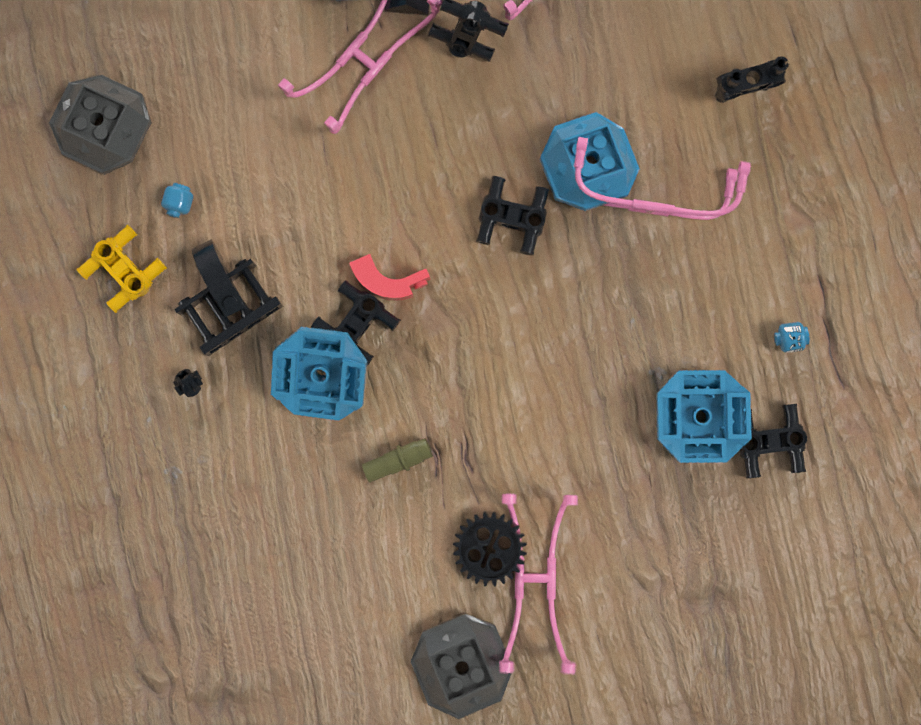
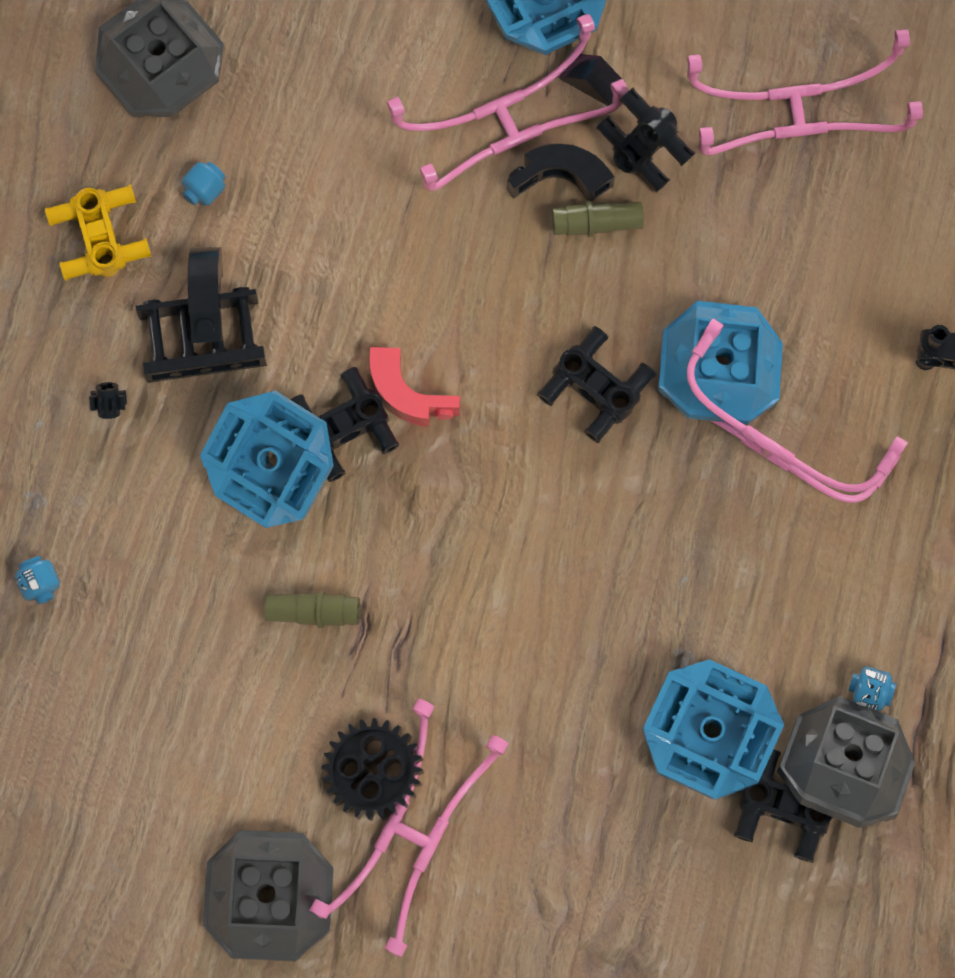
camera: 30 degrees right, 10 degrees down
(202, 529) = (37, 580): none -> dark azure head
(417, 69) = (563, 162): none -> black arch
(458, 99) = (596, 218): none -> olive piece
(786, 411) = (829, 782): none -> dark grey piece

